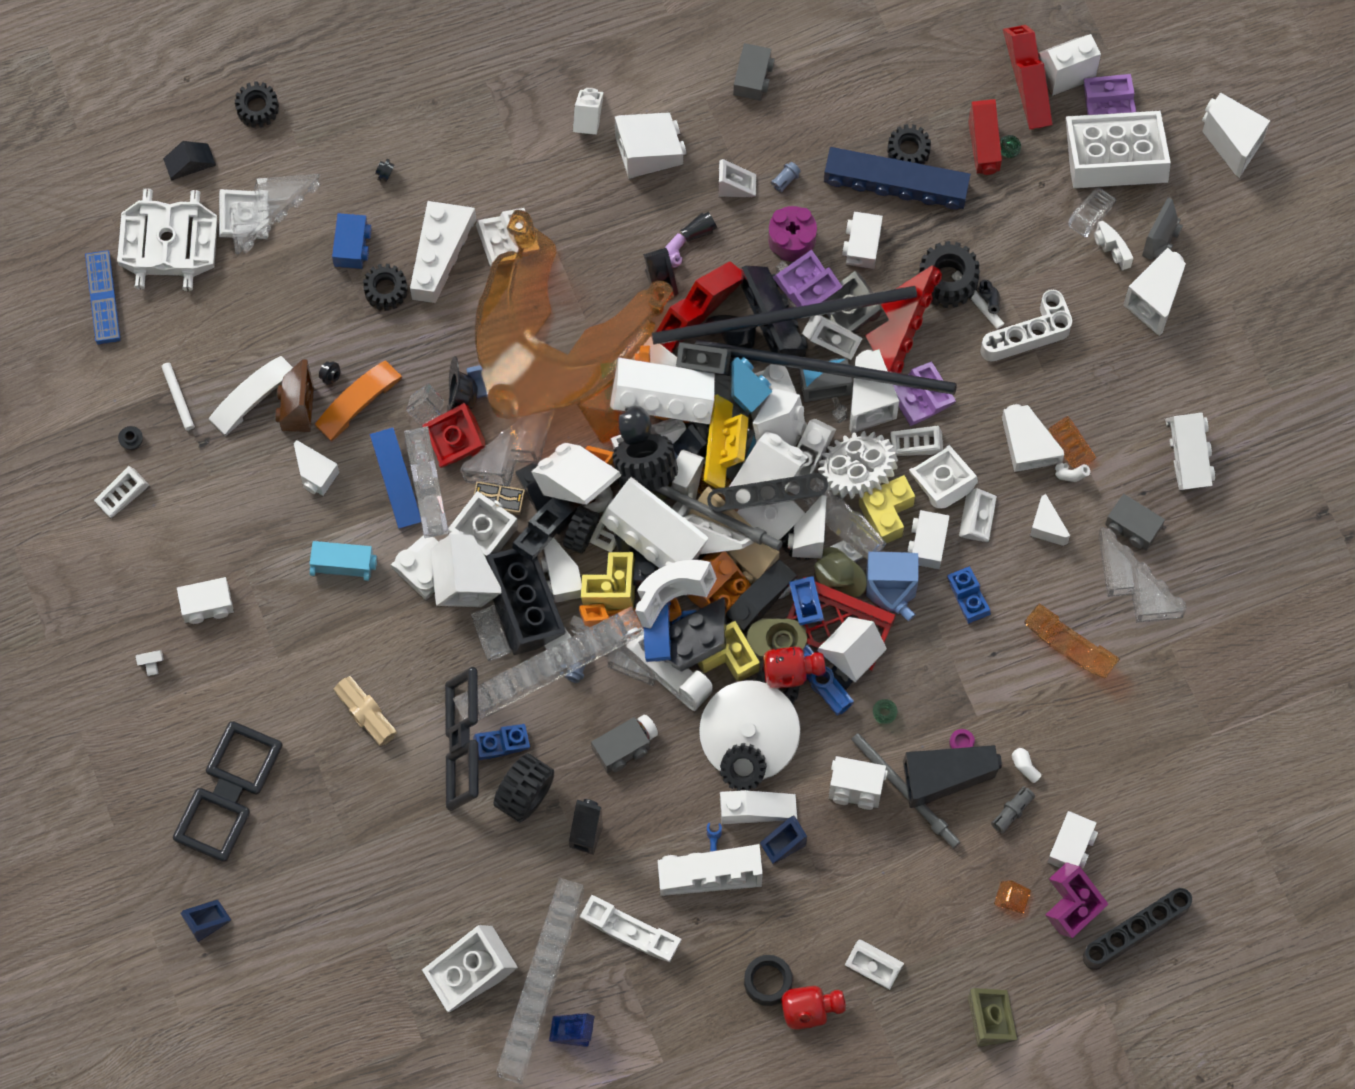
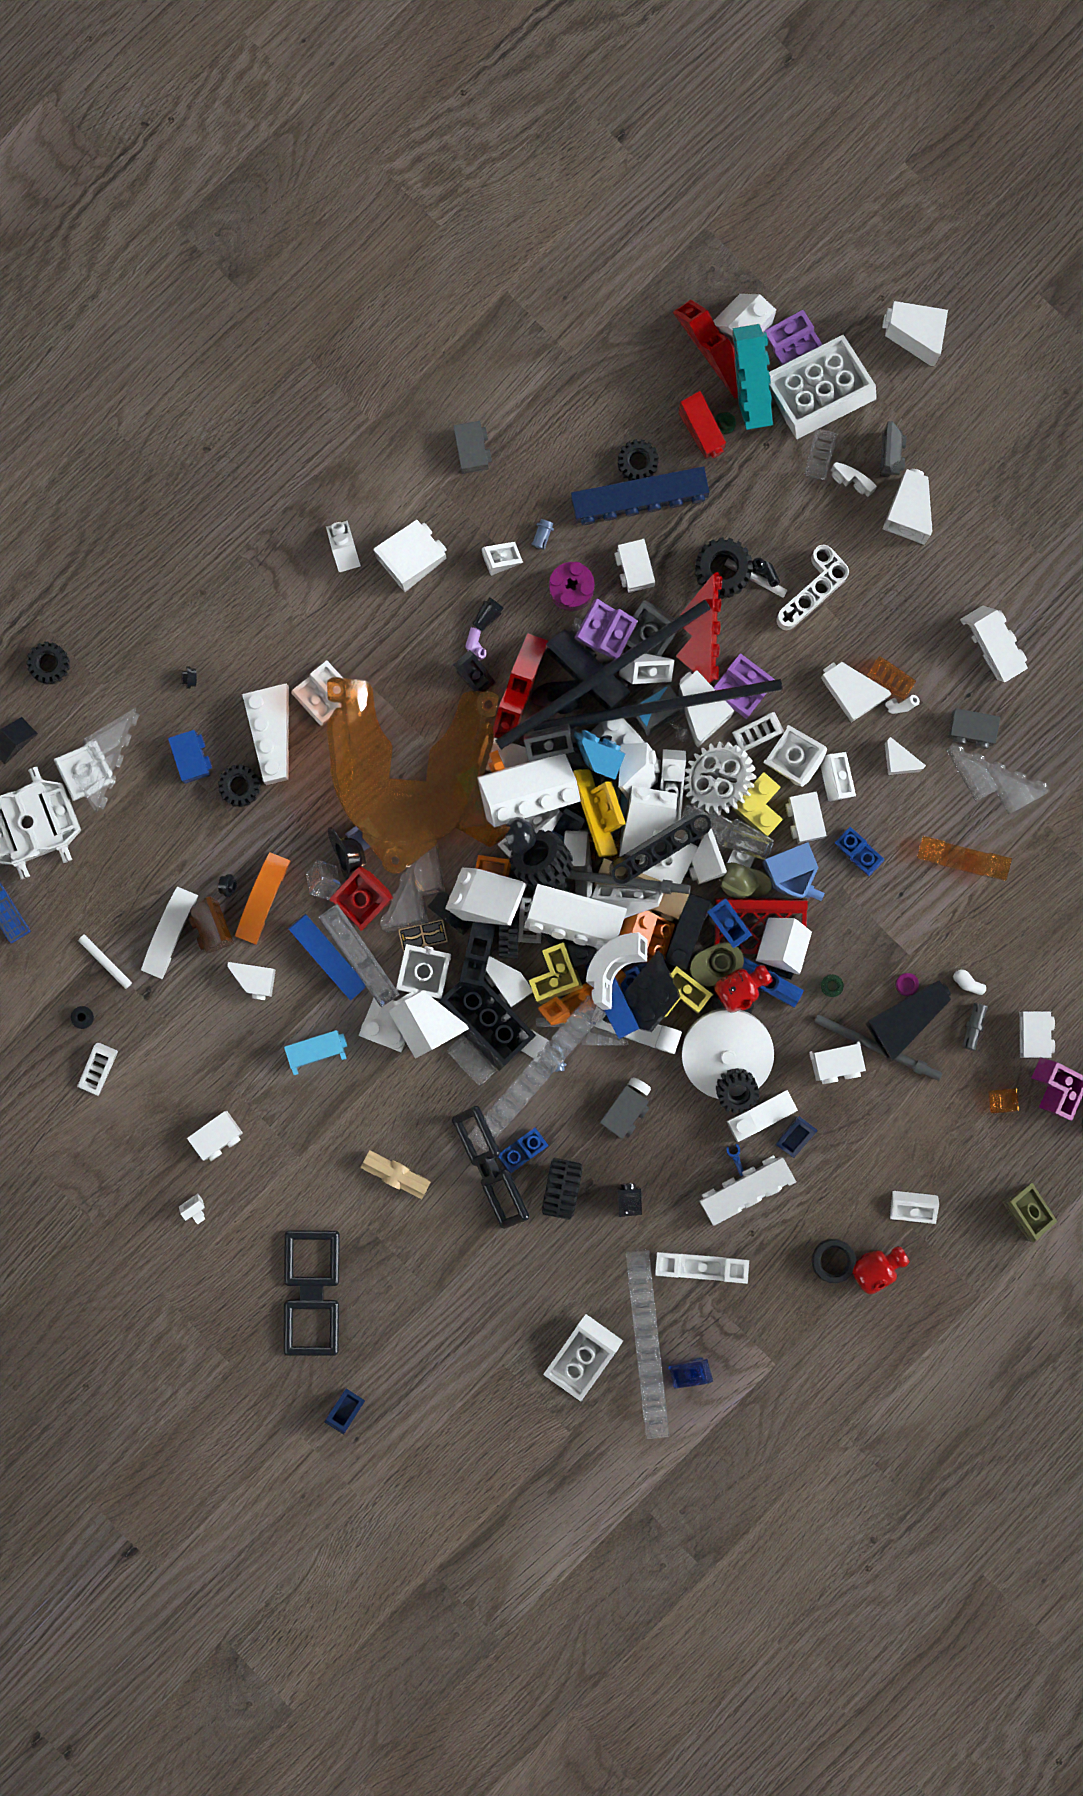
camera: 20 degrees left, 15 degrees up
(1052, 105) = (752, 376): none -> teal wedge

